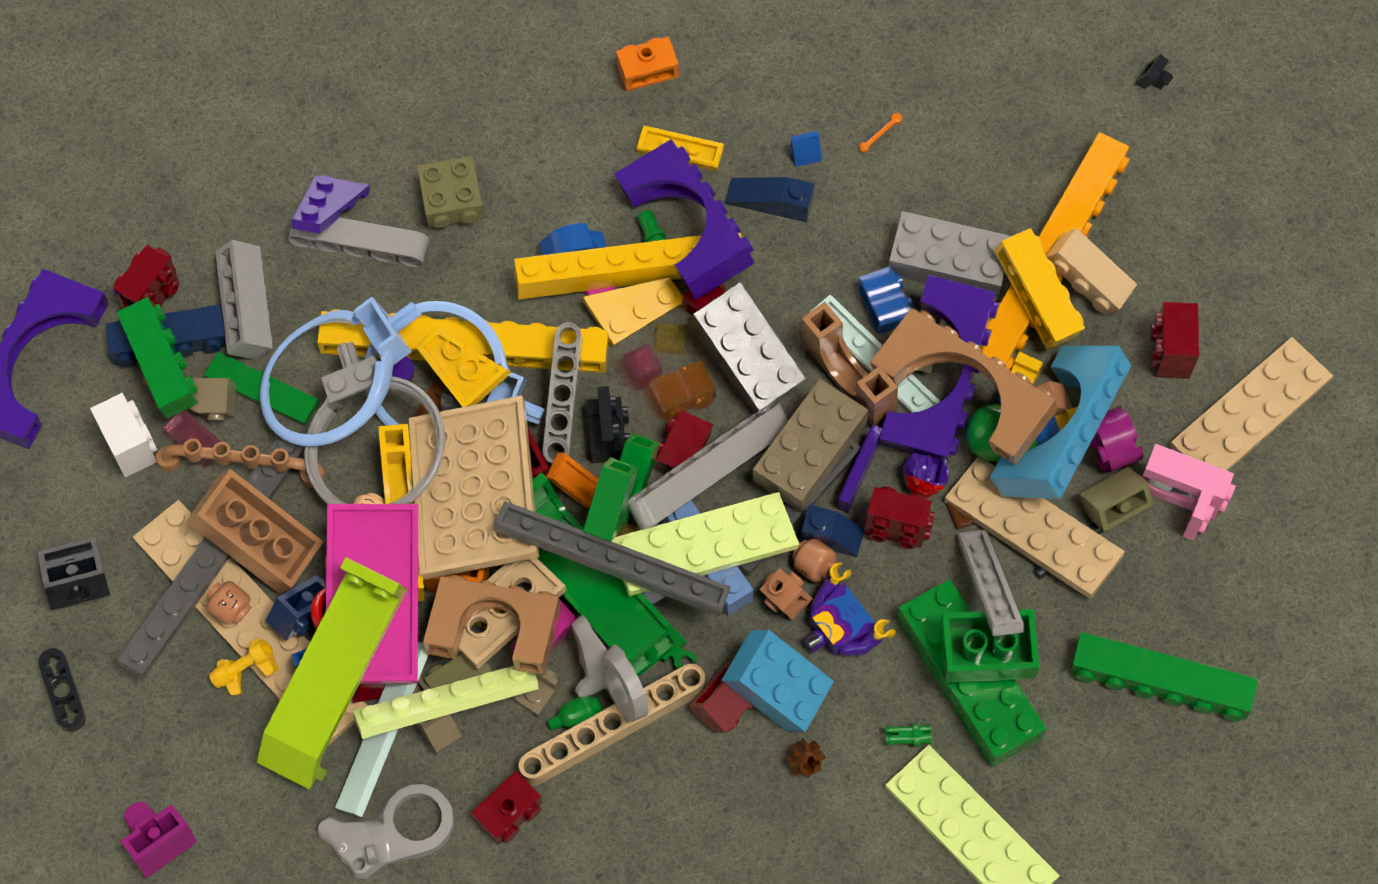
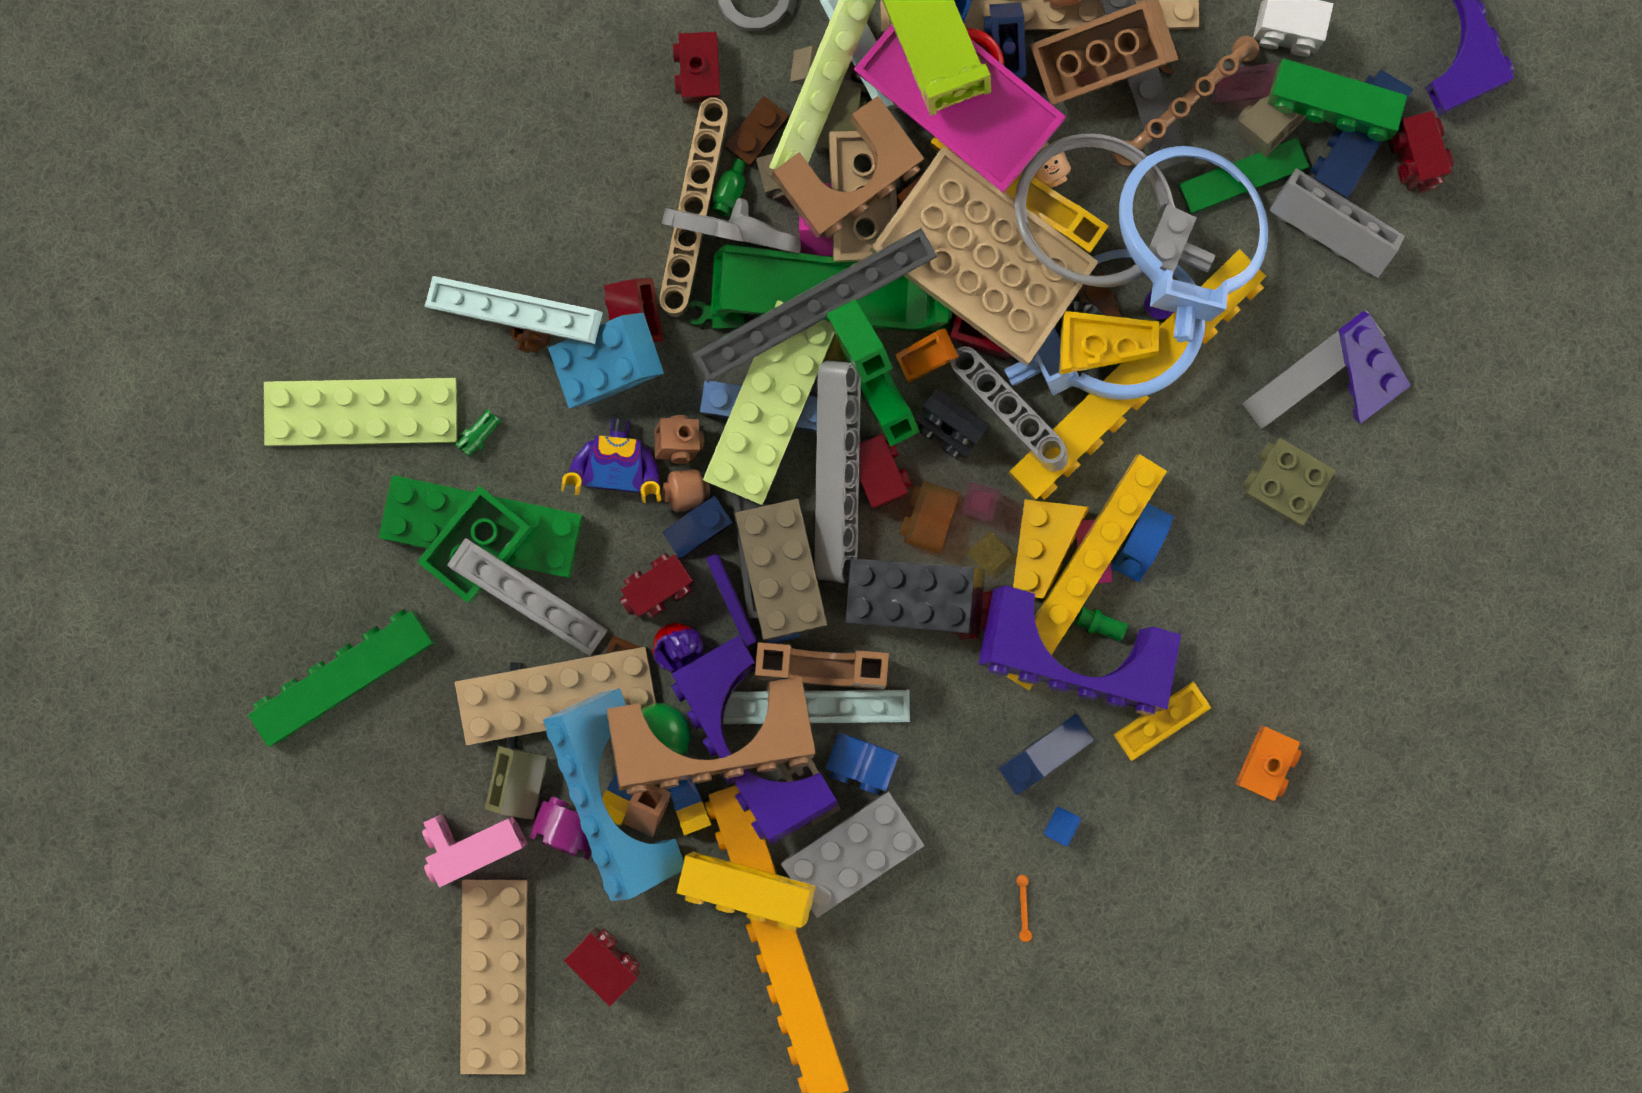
camera: 130 degrees right, 20 degrees up
(517, 732) = (757, 131): none -> reddish brown plate
(802, 775) = (514, 309): none -> light aqua tile
(1091, 271) = (727, 952): tan brick -> none

